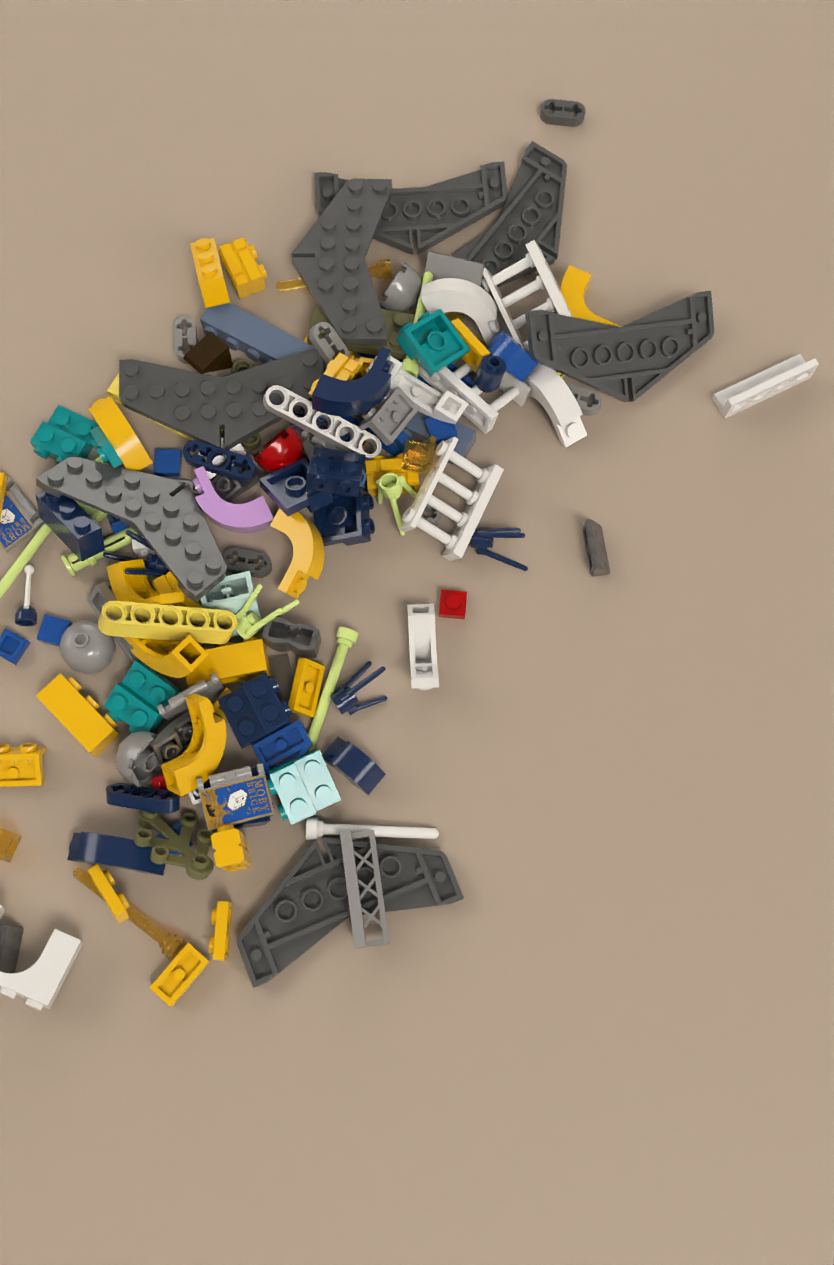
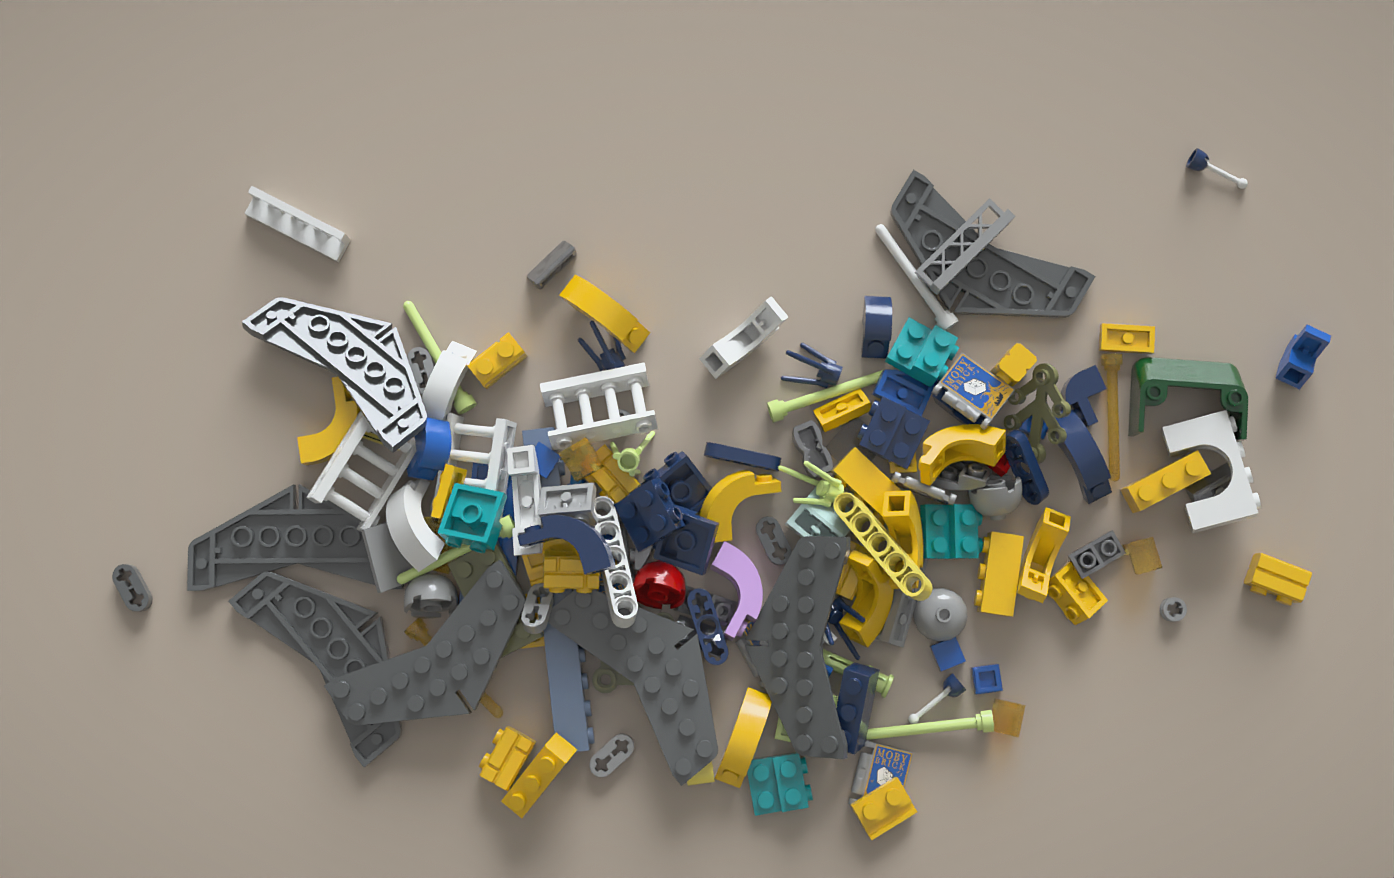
camera: 125 degrees left, 10 degrees up
(30, 805) = (1096, 554): none -> flat silver slope
(37, 909) = (1165, 481): none -> yellow brick
(41, 1119) = (1300, 356): none -> blue brick
(62, 754) = (1041, 554): none -> yellow arch
(104, 447) = (771, 727): teal plate -> none
(105, 1002) = (1154, 375): none -> dark green windscreen
(116, 902) = (1115, 422): yellow plate -> none
(168, 462) = (735, 678): blue tile -> none
(170, 899) = (1079, 389): none -> dark blue brick
(209, 355) = (620, 713): dark brown slope -> none
(221, 918) = (1083, 326): yellow plate -> none
(283, 1173) = (1199, 161): none -> hinge
(330, 583) = (742, 456): none -> dark blue beam
(452, 604) = (684, 346): red plate -> none
(490, 373) = (464, 450): dark blue brick -> none
(527, 552) = (605, 311): none -> yellow arch
(535, 411) = (463, 401): none -> yellowish green piece
(546, 453) = (497, 360): none -> yellow brick

